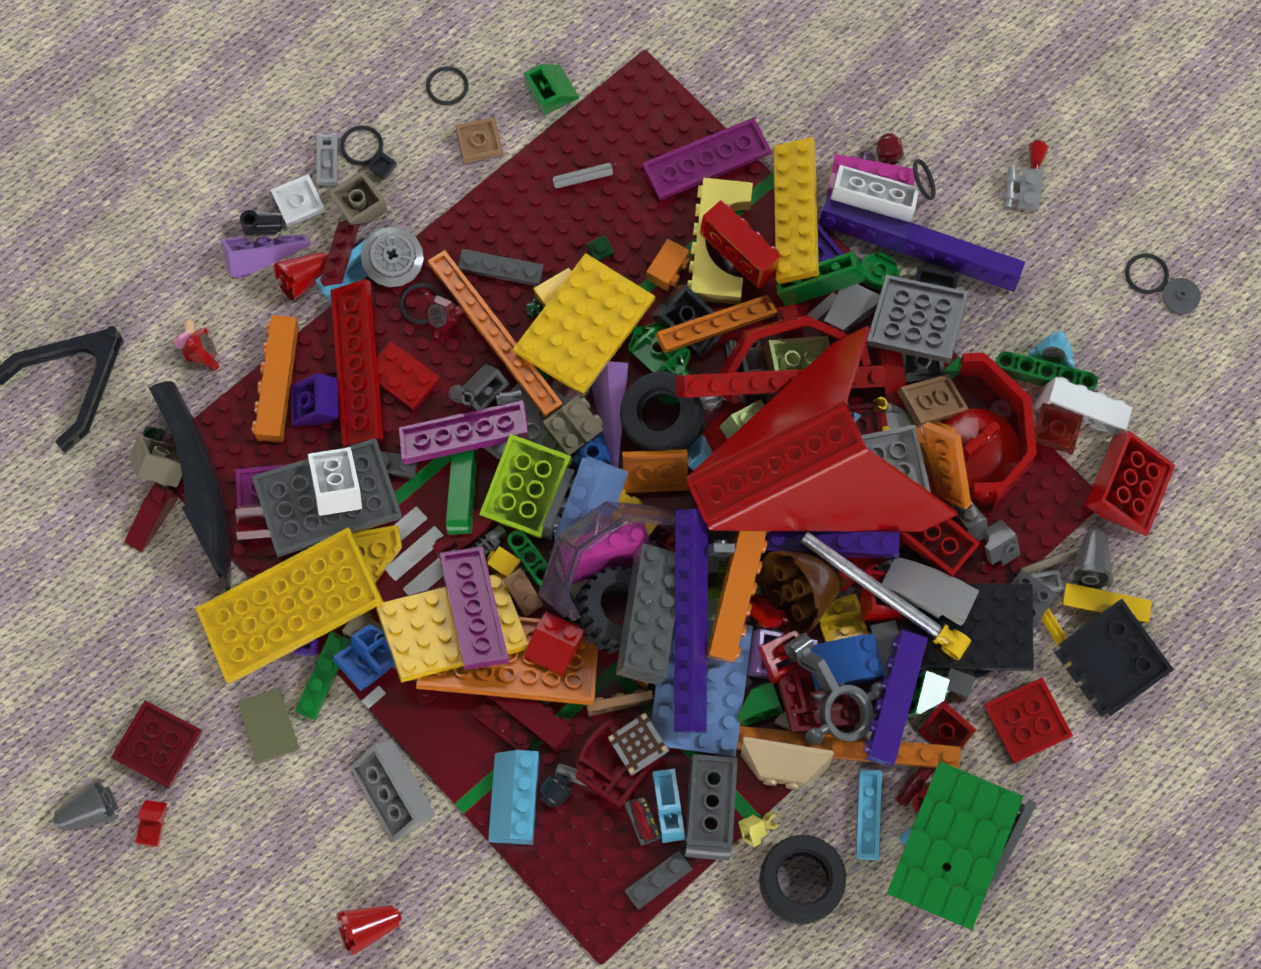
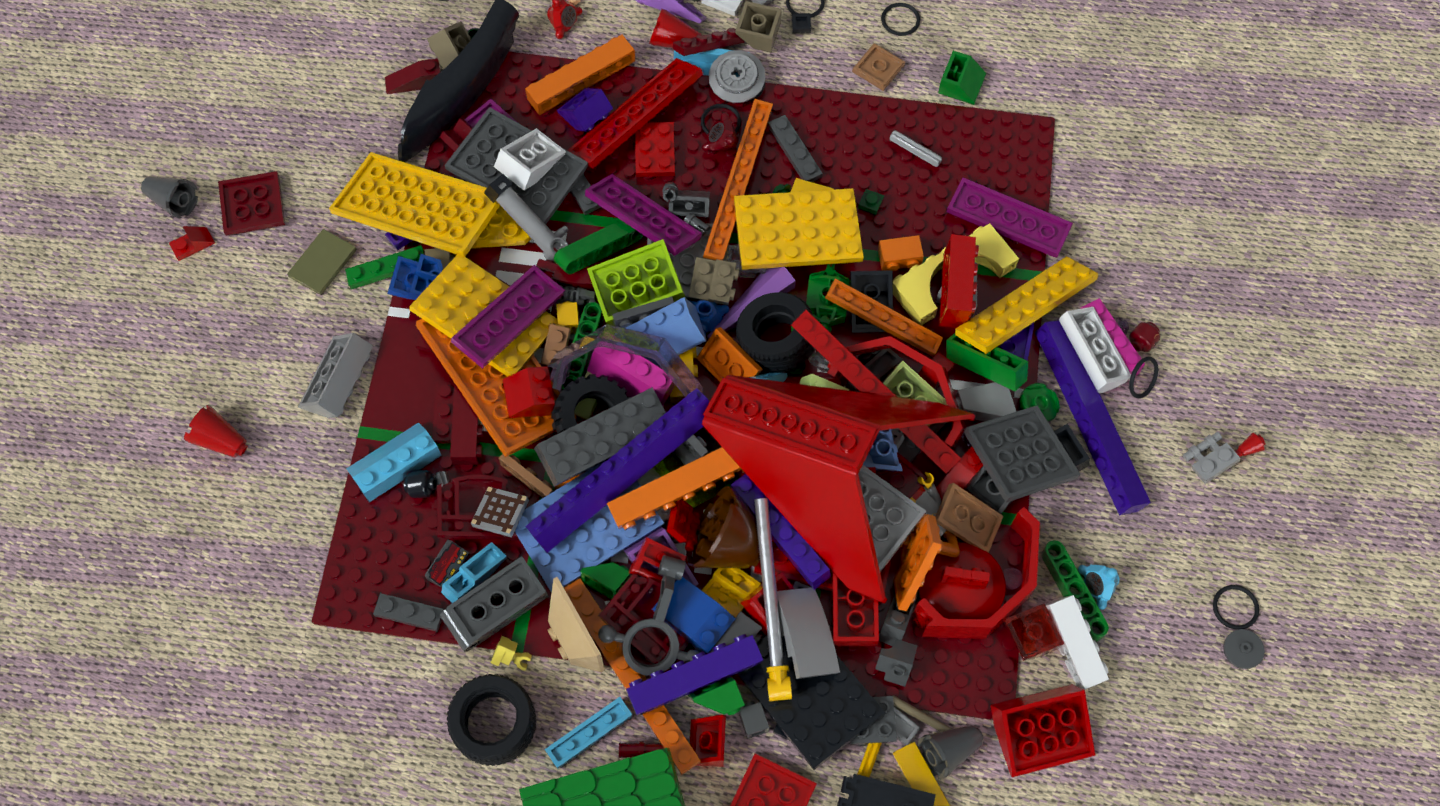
camera: 50 degrees right, 5 degrees down
(351, 526) = (524, 216): none -> light grey piece

